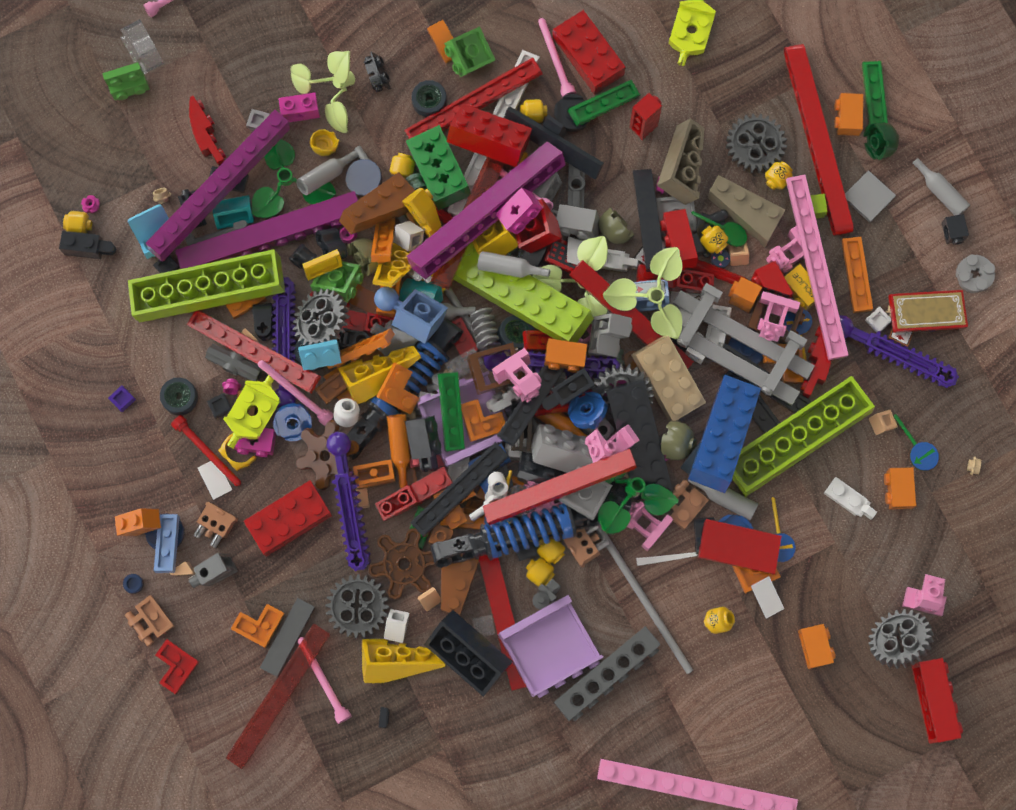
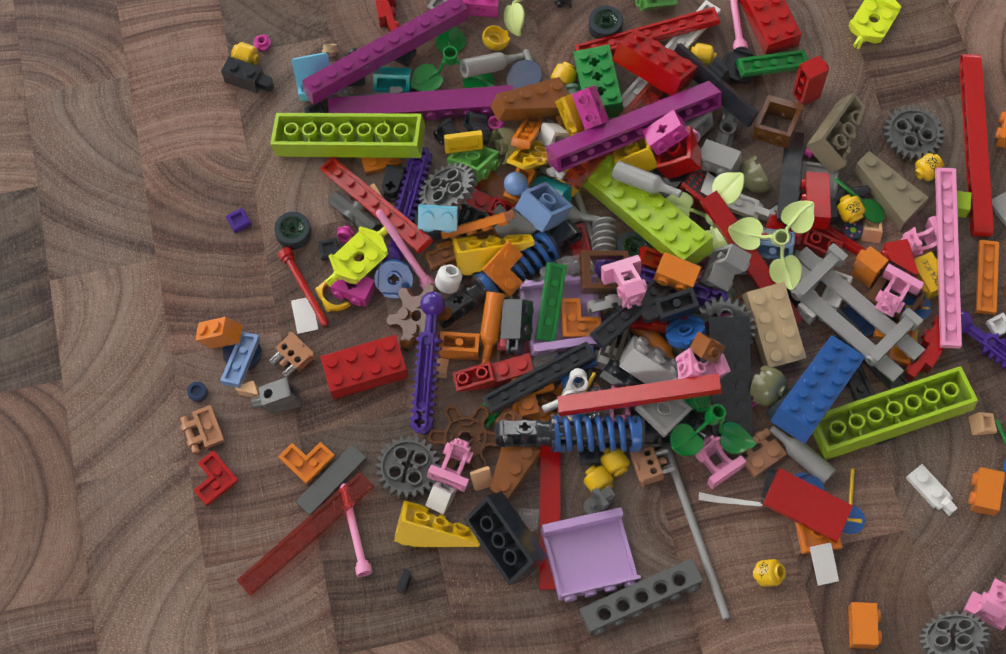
camera: 15 degrees right, 10 degrees down
(403, 579) = (458, 450): none -> bright pink tile
(439, 203) = (590, 107): none -> dark pink brick
(612, 424) = (707, 347): none -> dark orange brick
(624, 149) = (780, 108): none -> reddish brown window

